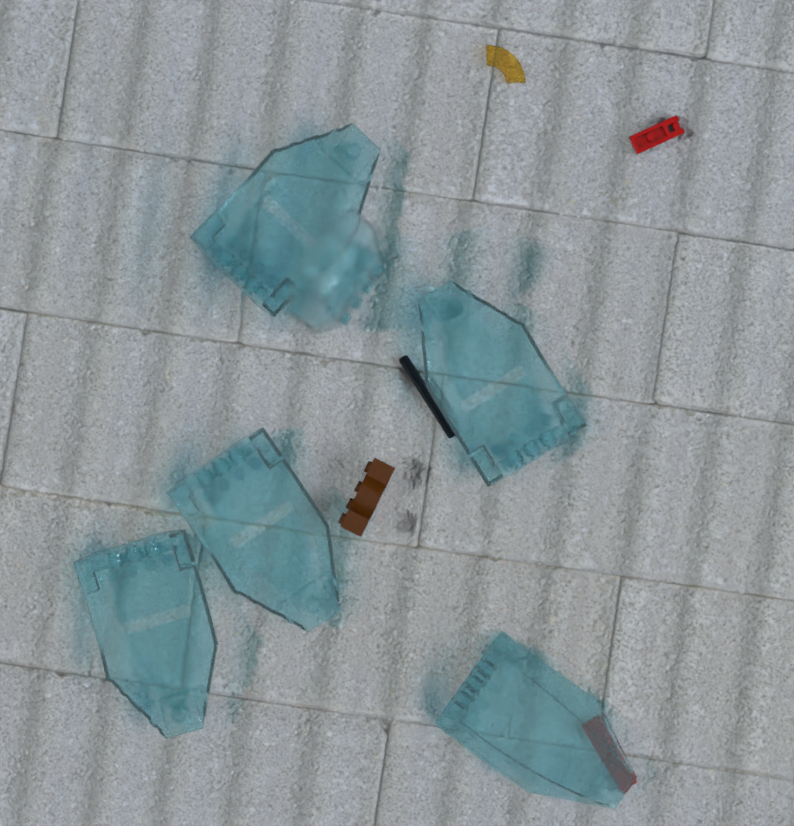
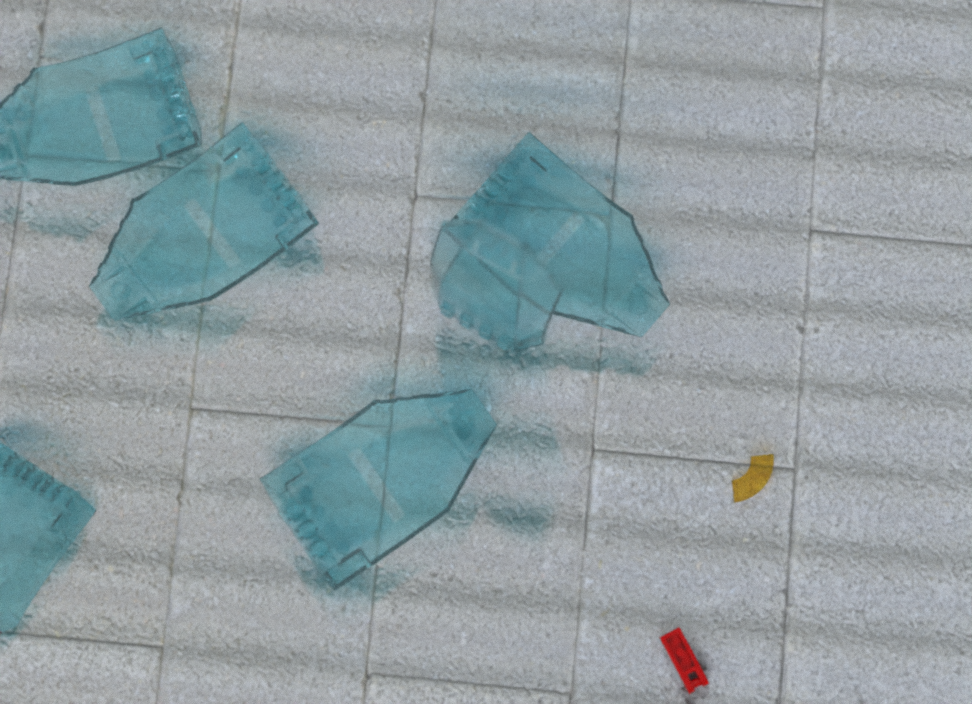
camera: 85 degrees right, 10 degrees down
(367, 497) = (240, 344): reddish brown brick -> none
(420, 386) = (384, 394): black axle -> none

